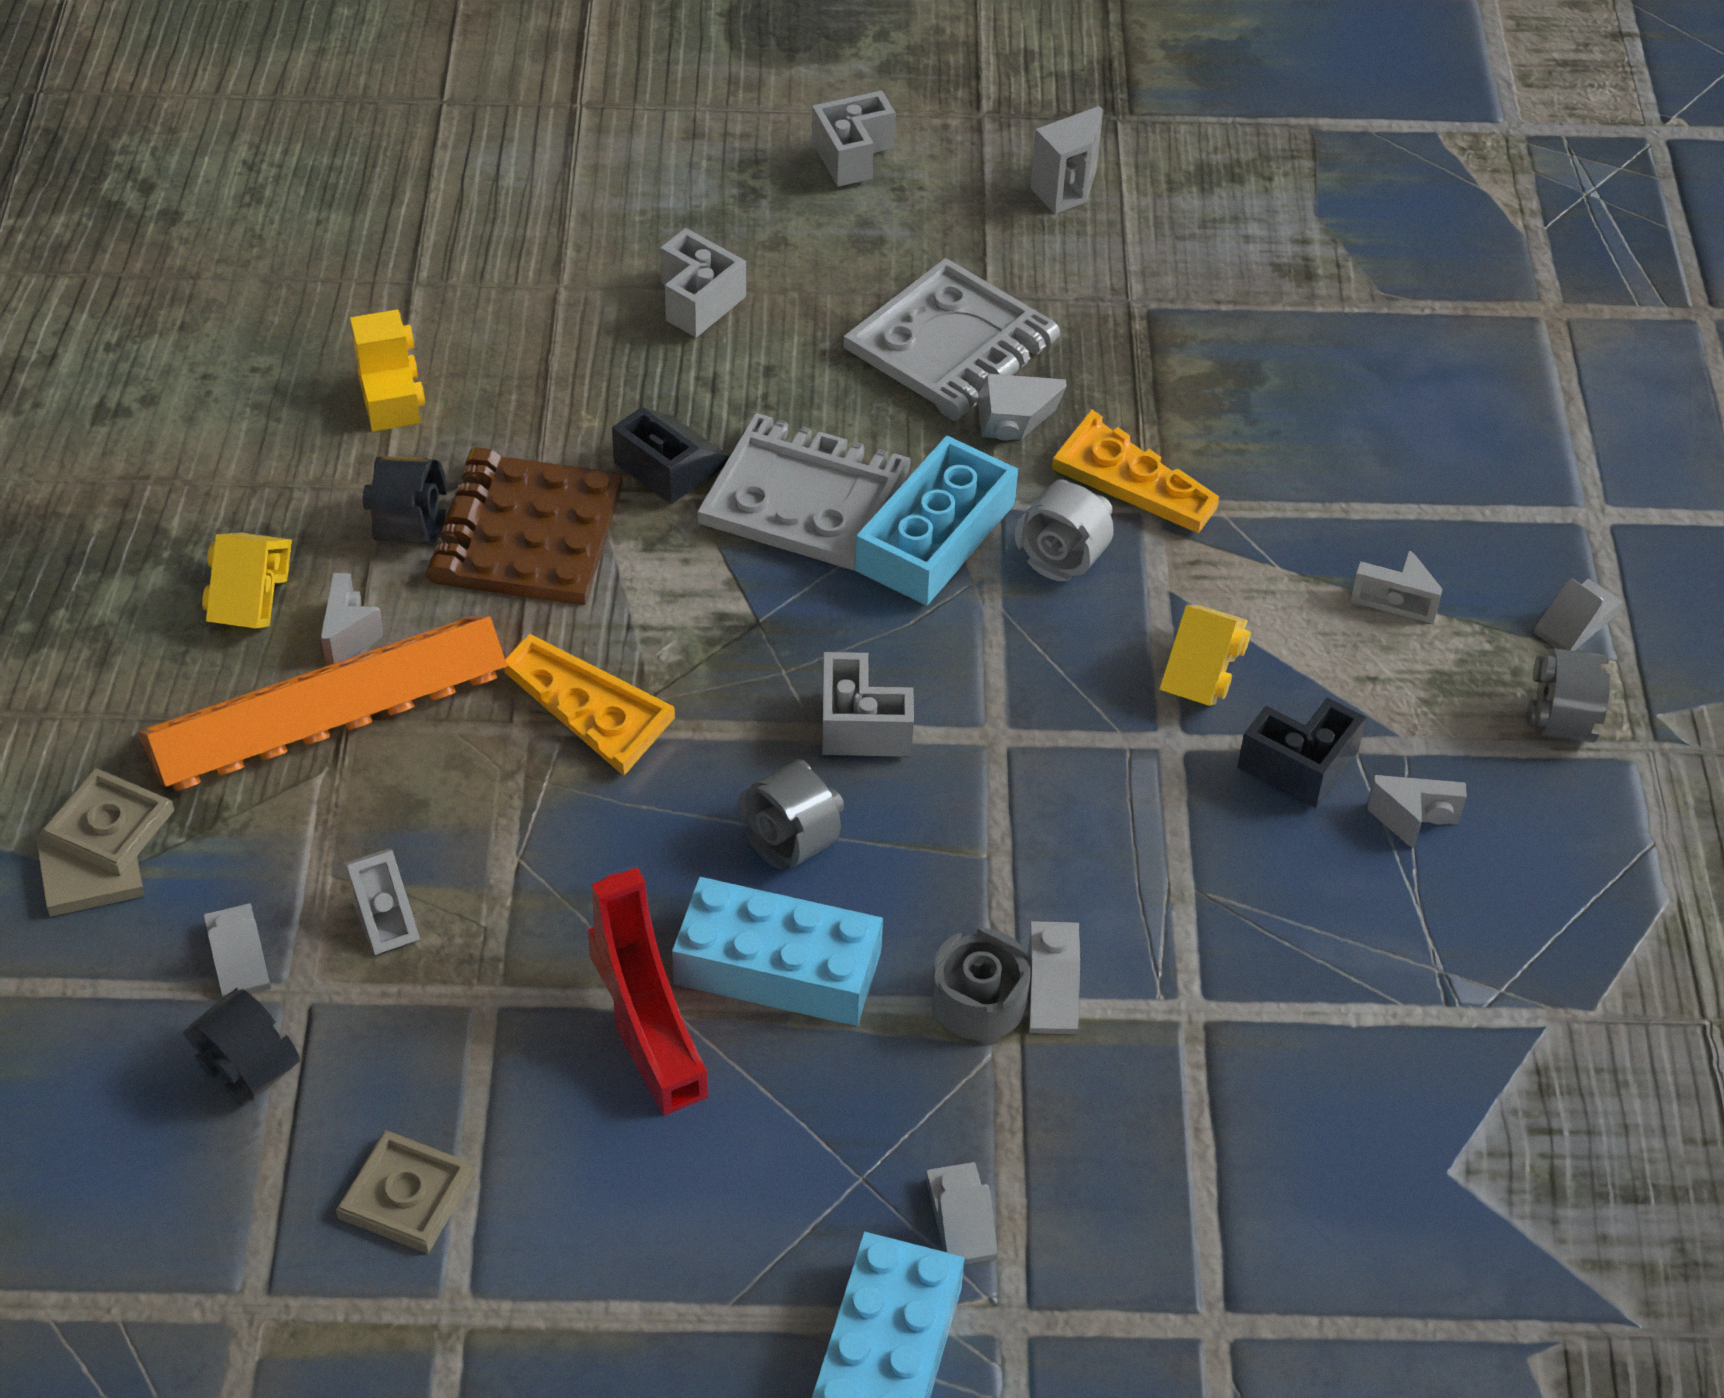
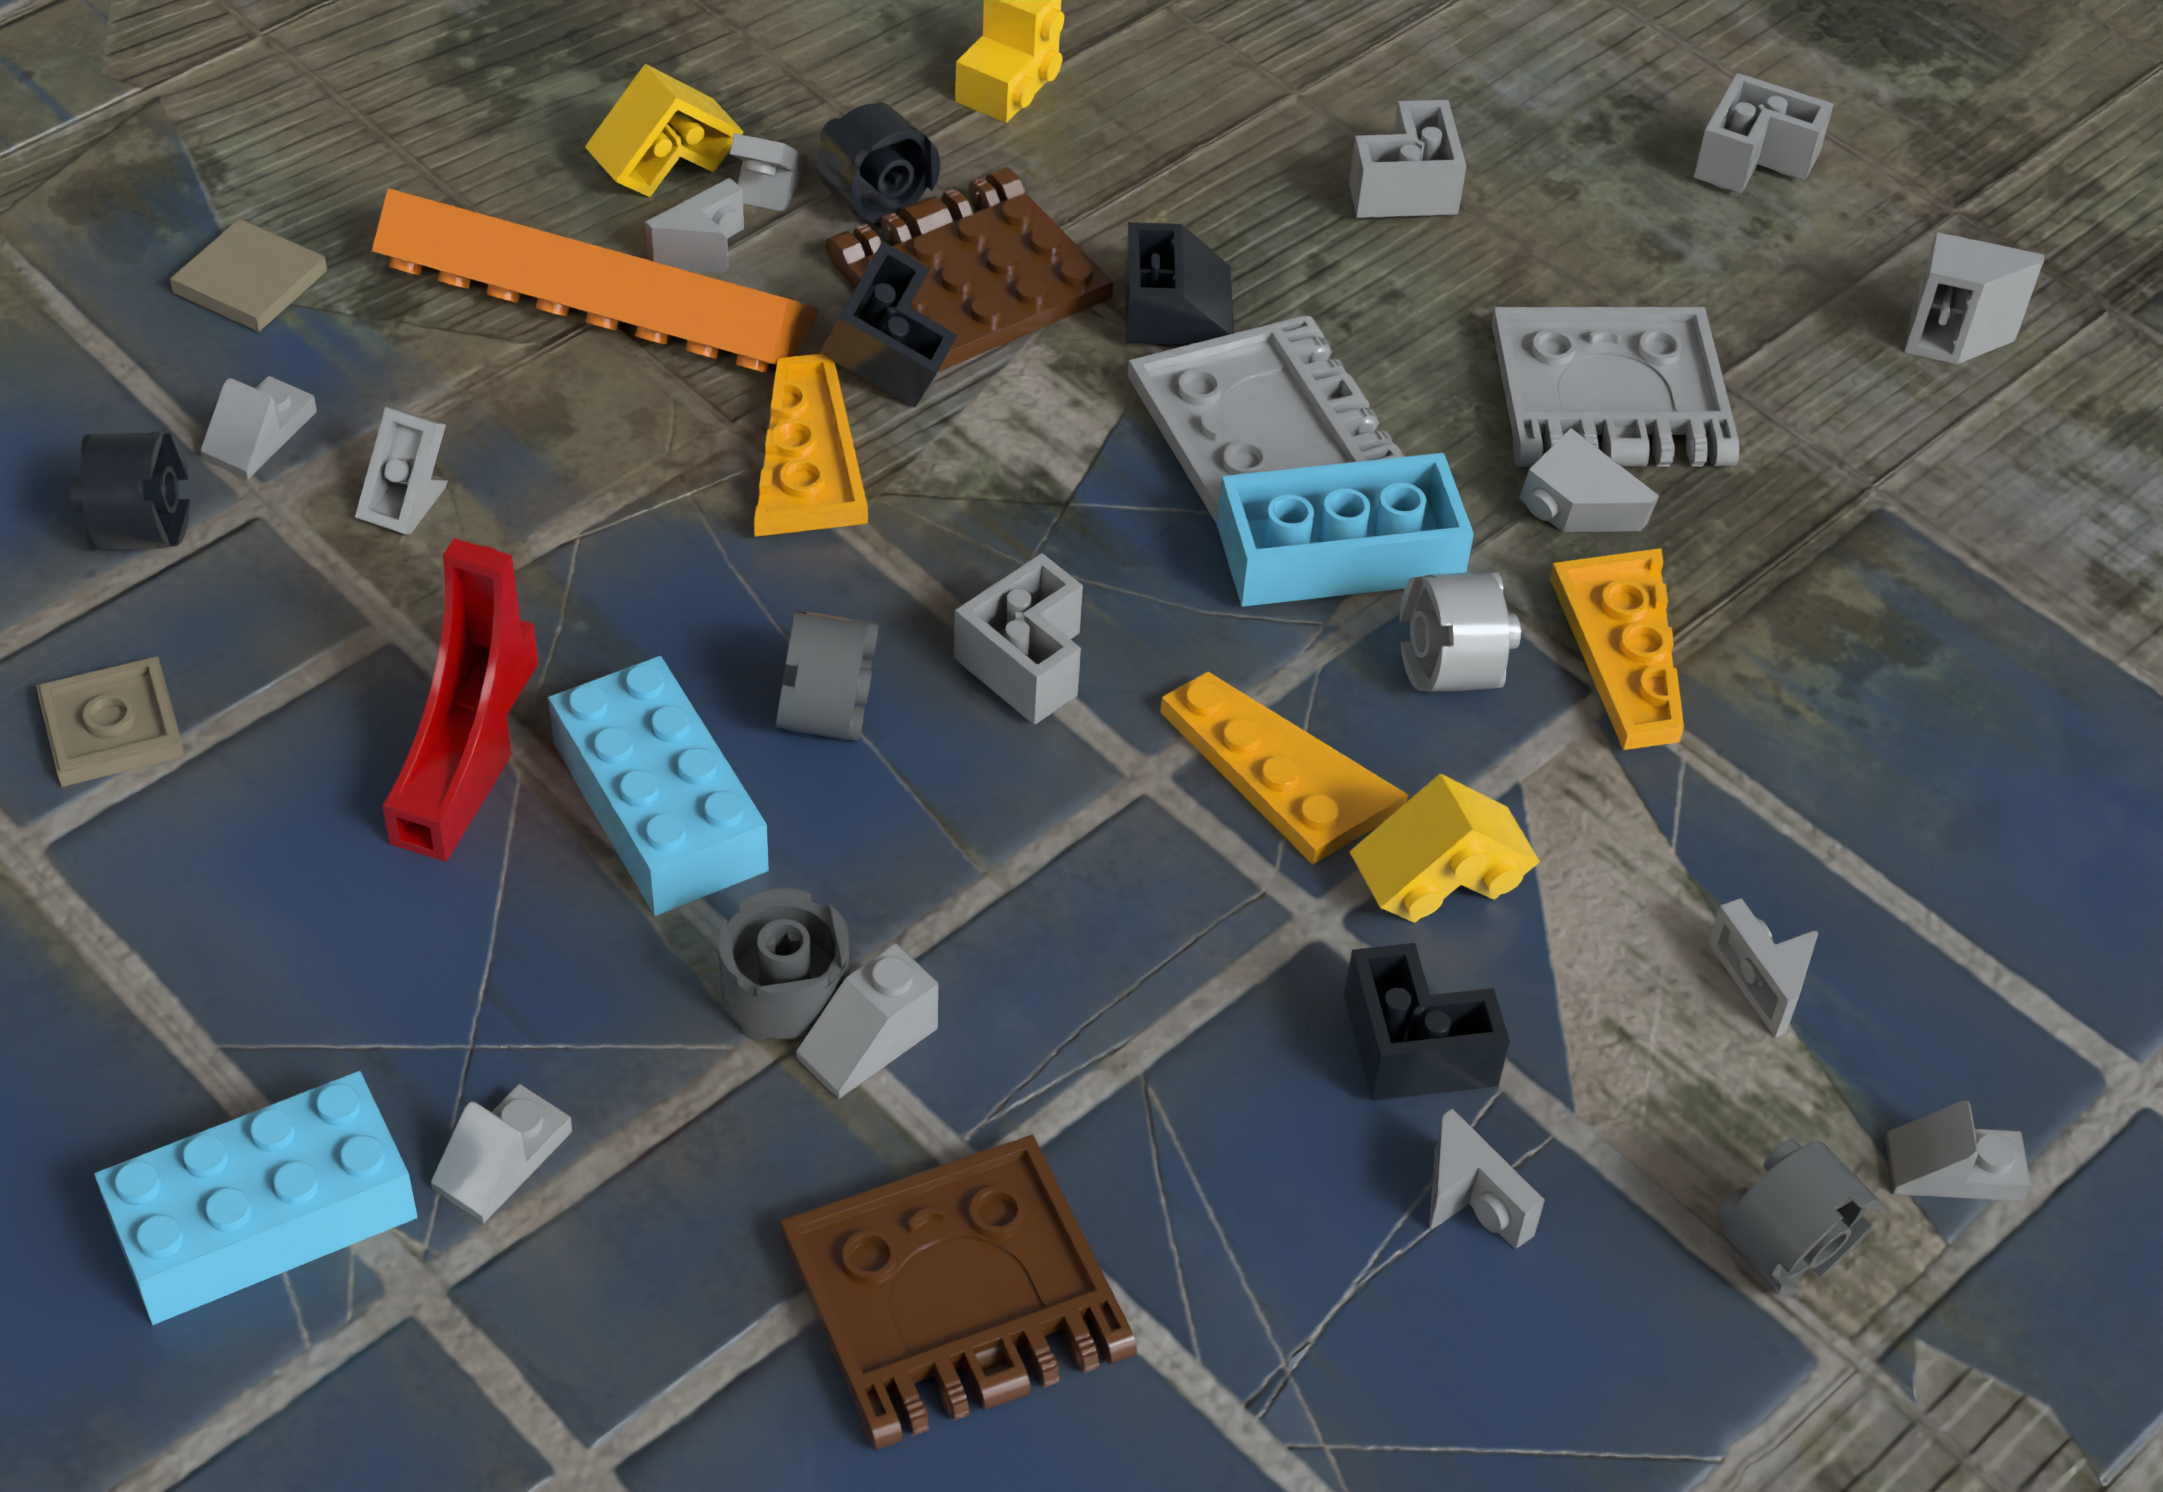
camera: 45 degrees right, 0 degrees up
(107, 821) = (297, 246): dark tan tile -> none
(332, 554) = (767, 171): none -> light grey slope
(552, 596) = (886, 337): none -> black brick
(1060, 676) = (1284, 772): none -> light orange wing
(1261, 1067) = (954, 1277): none -> reddish brown hinge

